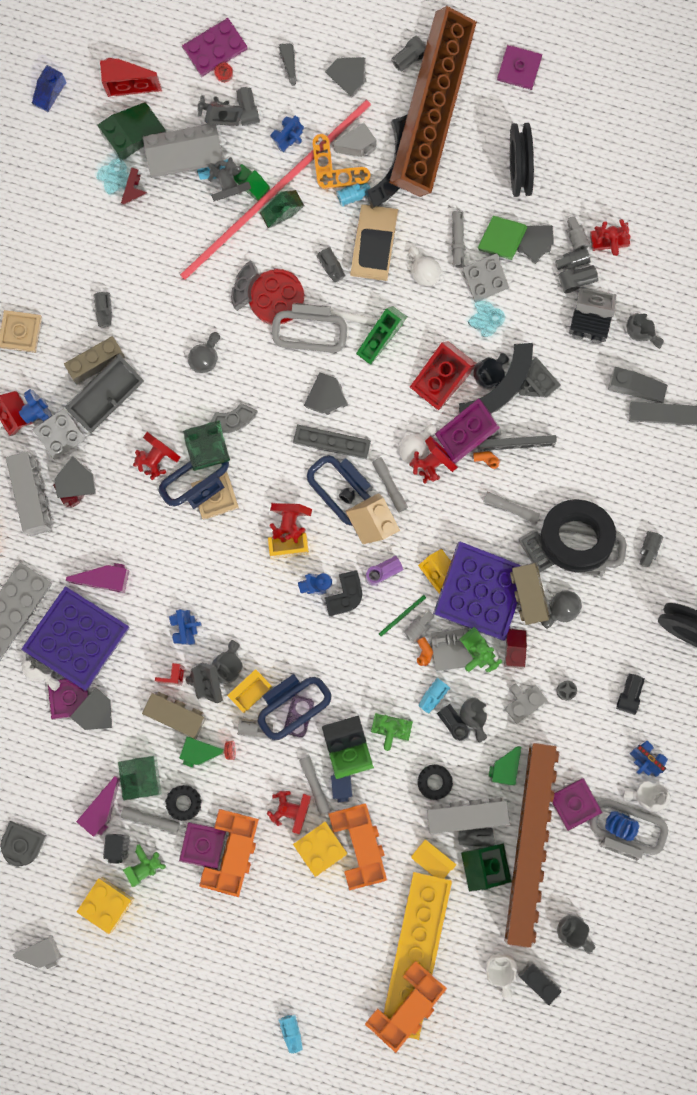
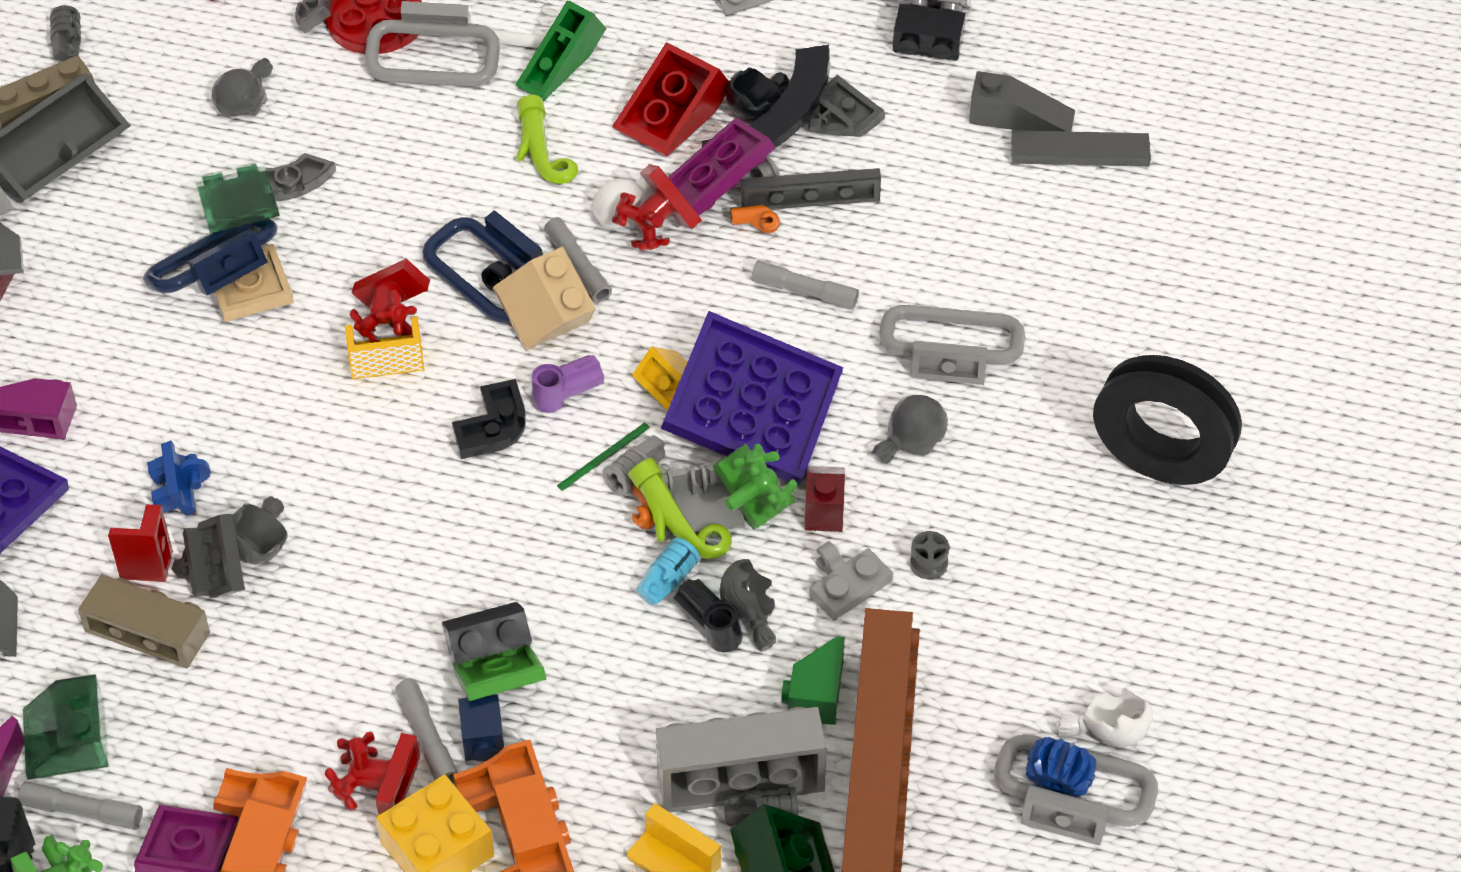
camera: 10 degrees left, 30 degrees down
(154, 456) = (149, 210): red piece -> none
(172, 798) = (145, 752): black tyre -> none
(198, 752) = (193, 679): green slope -> none
(230, 750) = (254, 675): clear red tile -> none
(249, 691) = (300, 575): yellow panel -> none
(250, 728) = (304, 637): light grey hinge -> none
(283, 693) = (371, 570): dark blue bar -> none
(292, 710) = (405, 584): clear purple piece -> none
(315, 584) = (432, 398): blue hips -> none
(325, 395) = (459, 138): dark grey slope -> none
(332, 441) = (459, 201): dark grey tile -> none
(366, 396) = (533, 138): none -> lime plant
(391, 728) = (584, 622): bright green piece -> none
(433, 661) = (667, 513): none -> lime plant
(435, 794) = (667, 697): black tyre -> none
(483, 319) = (748, 31): clear light blue plate -> none
(527, 548) = (852, 321): dark grey slope -> none
(530, 593) = (846, 393): dark tan brick -> none
(576, 804) = (963, 743): magenta plate -> none
(584, 512) = (930, 332): black tyre -> none
(629, 699) = (1056, 562): black piece -> none
(642, 329) = (1020, 36): dark grey hair -> none
(647, 762) = (1101, 661): blue hips -> none
(650, 548) = (1070, 330): dark grey hinge -> none

